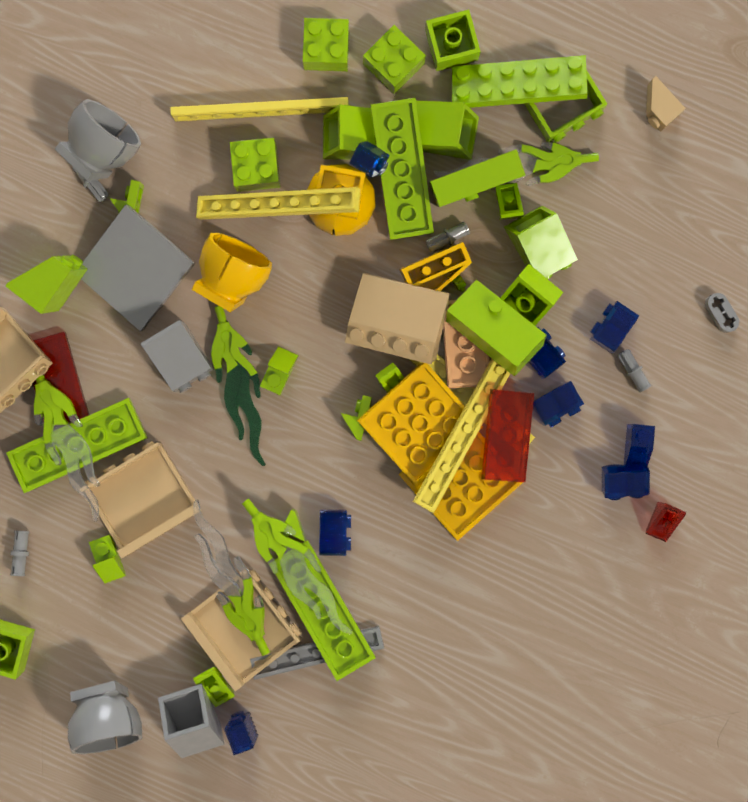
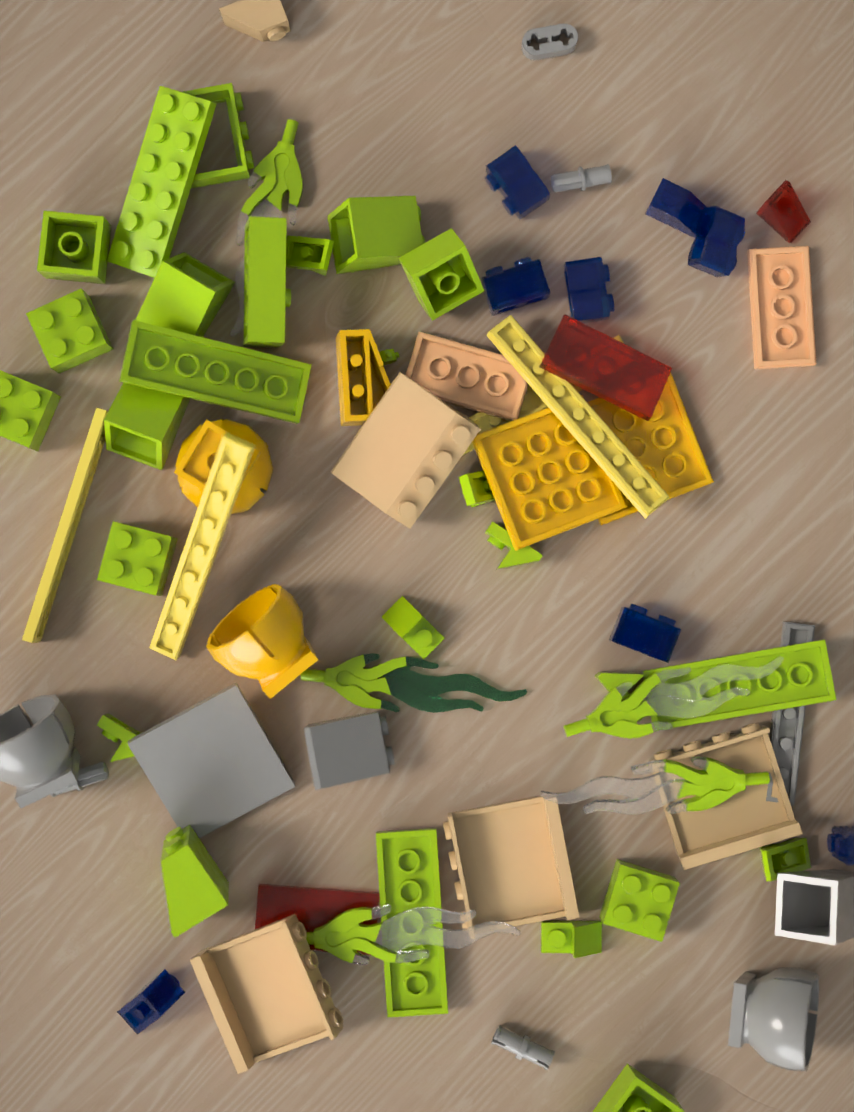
camera: 70 degrees left, 0 degrees up
(148, 596) = (639, 900): none -> lime brick
(369, 159) = (190, 407): brick -> none
(448, 236) = (323, 348): light grey axle -> none
(495, 327) = (464, 330): lime brick -> none
(597, 543) = (781, 307): none -> light nougat tile

